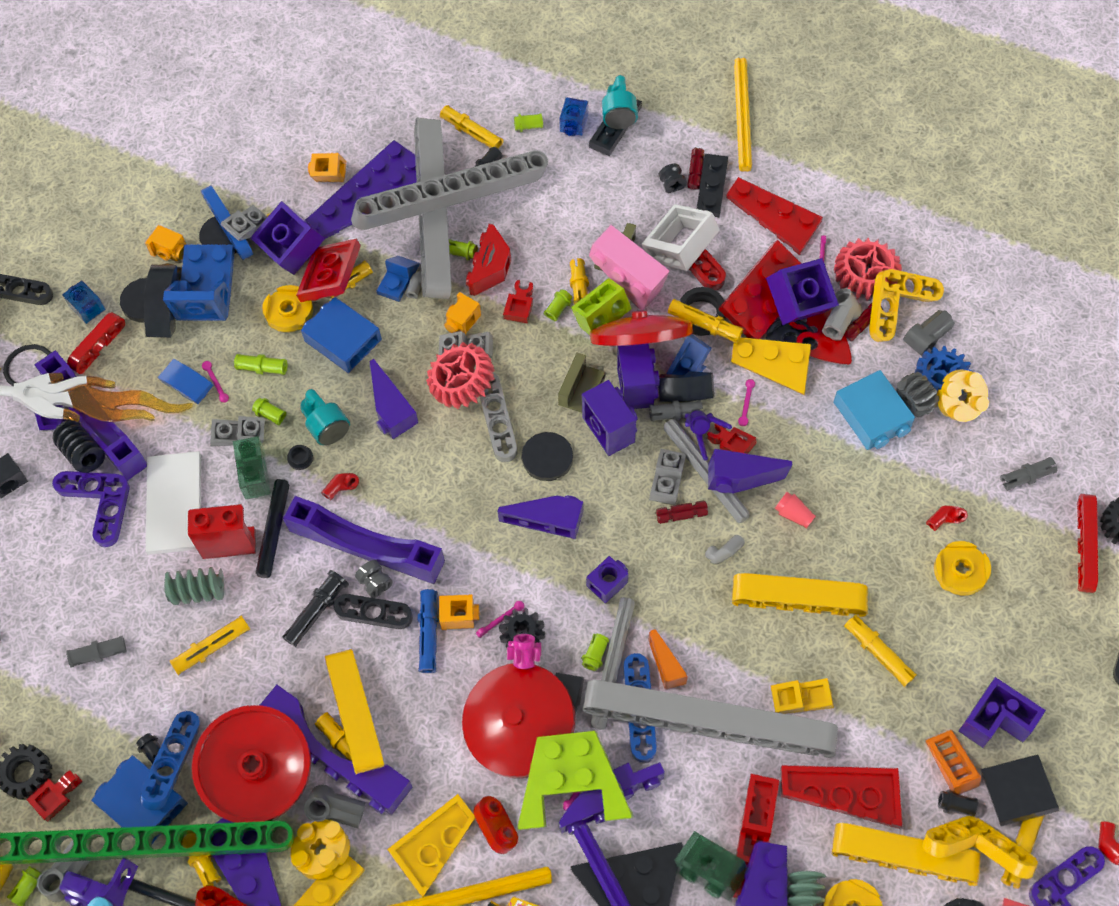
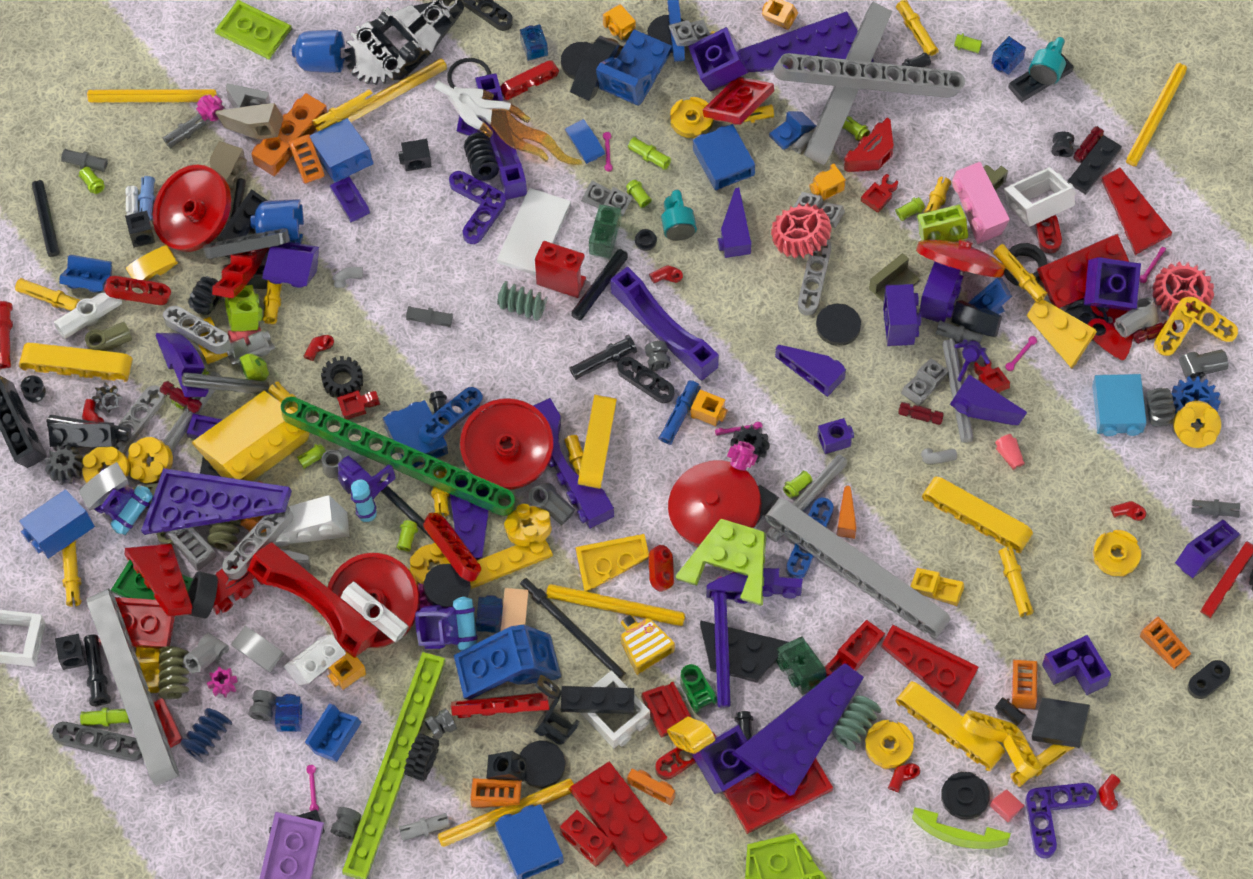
camera: 25 degrees right, 0 degrees up
(180, 663) = (540, 346): yellow pin -> none
(1046, 645) = (1159, 648): none -> orange slope
(1047, 521) = (1206, 548): none -> dark purple slope

